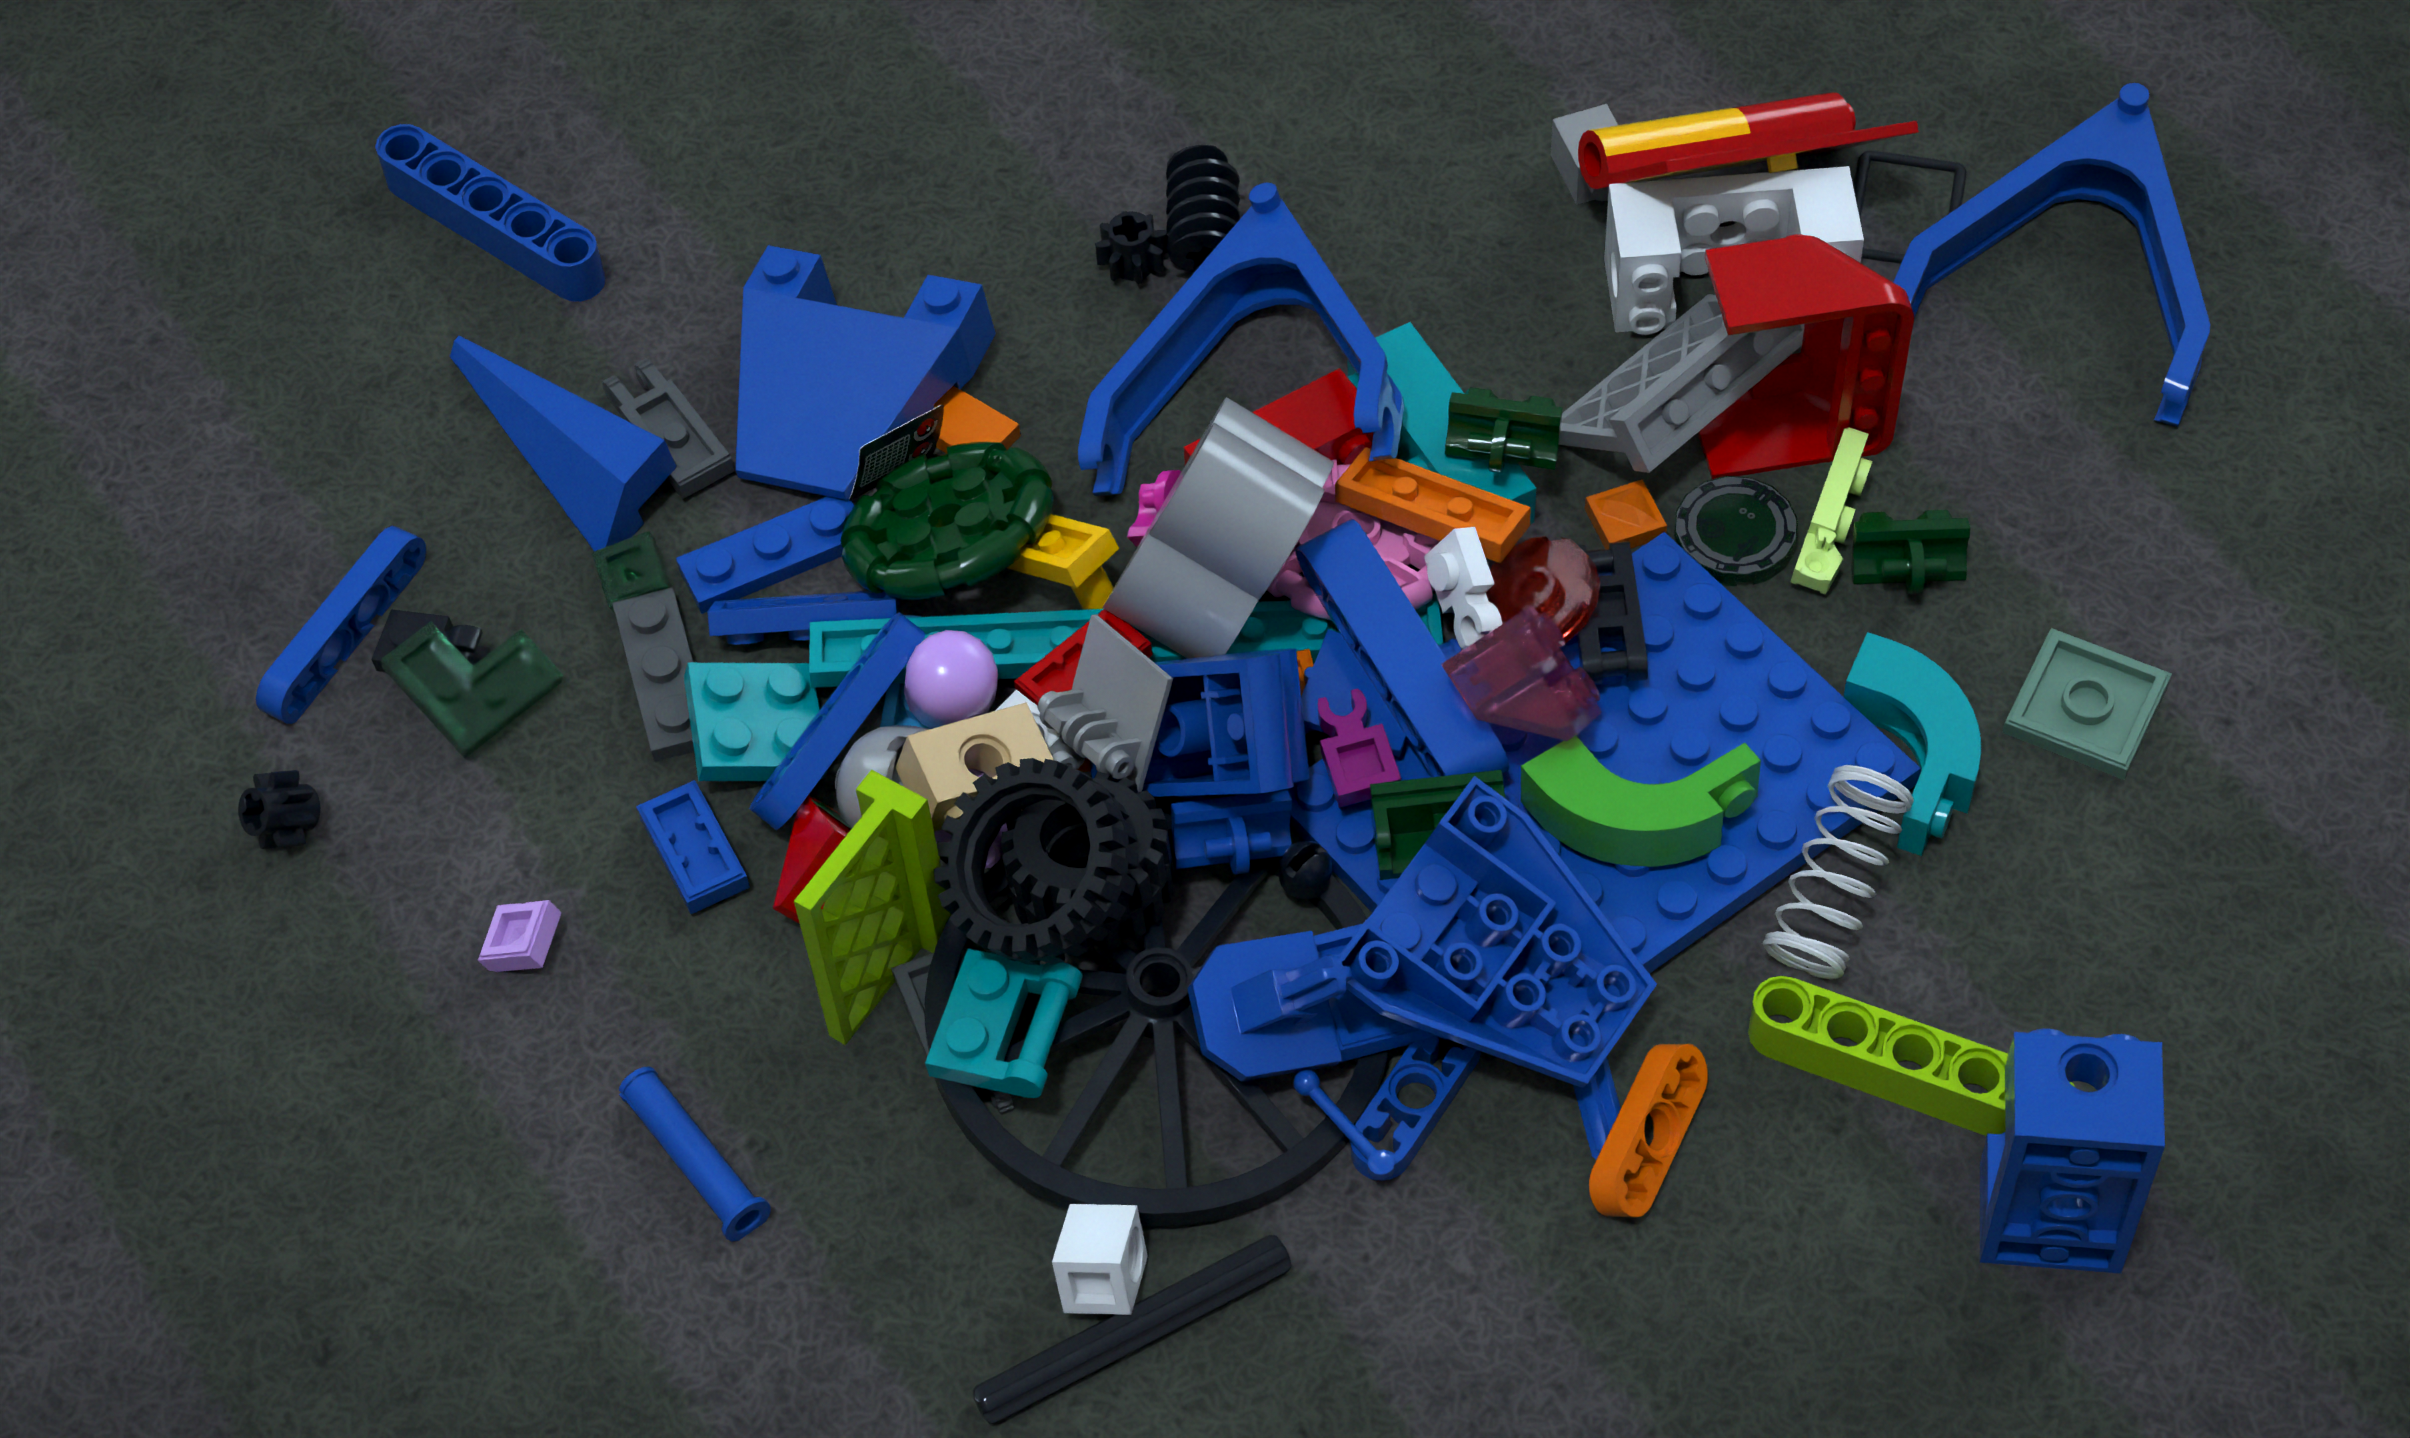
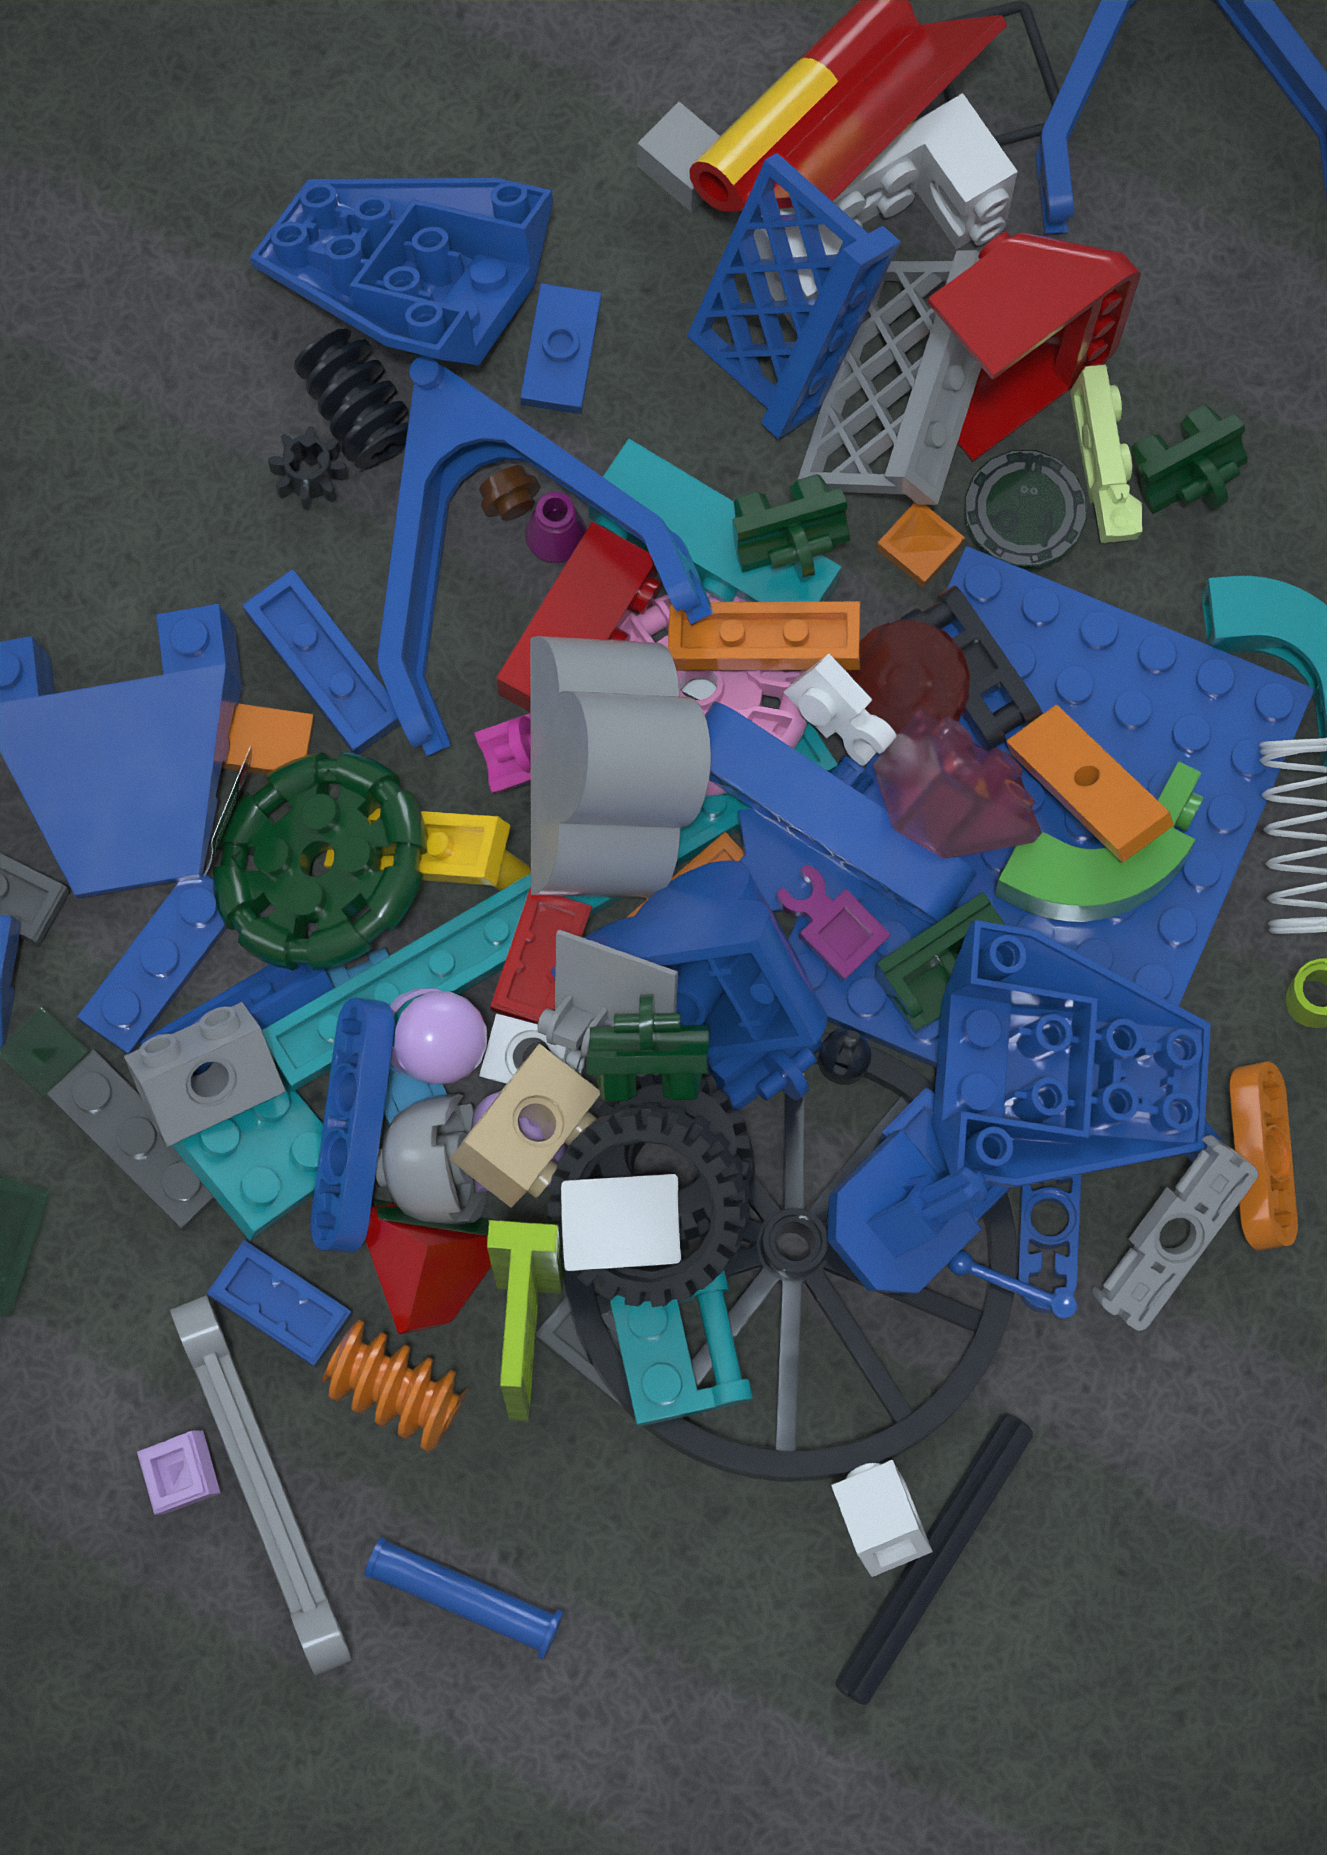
camera: 35 degrees left, 20 degrees up
(550, 1106) = (261, 1485): none -> light grey piece
(707, 640) = (235, 1082): none -> light grey brick
(744, 951) = (393, 1387): none -> orange piece
(1001, 862) = (620, 1222): none -> white sticker
(1051, 387) = (323, 662): none -> blue plate
(1135, 751) = (648, 1045): none -> dark green hips
(1287, 331) = (509, 493): none -> reddish brown plate
(1307, 357) = (551, 539): none -> magenta cone
(1318, 137) = (413, 258): none -> blue wedge
(1401, 253) = (561, 348): none -> blue plate
(1483, 1174) = (1152, 1272): none -> light grey piece
(1629, 267) = (833, 316): none -> blue fence
(1652, 729) = (1090, 783): none -> orange tile

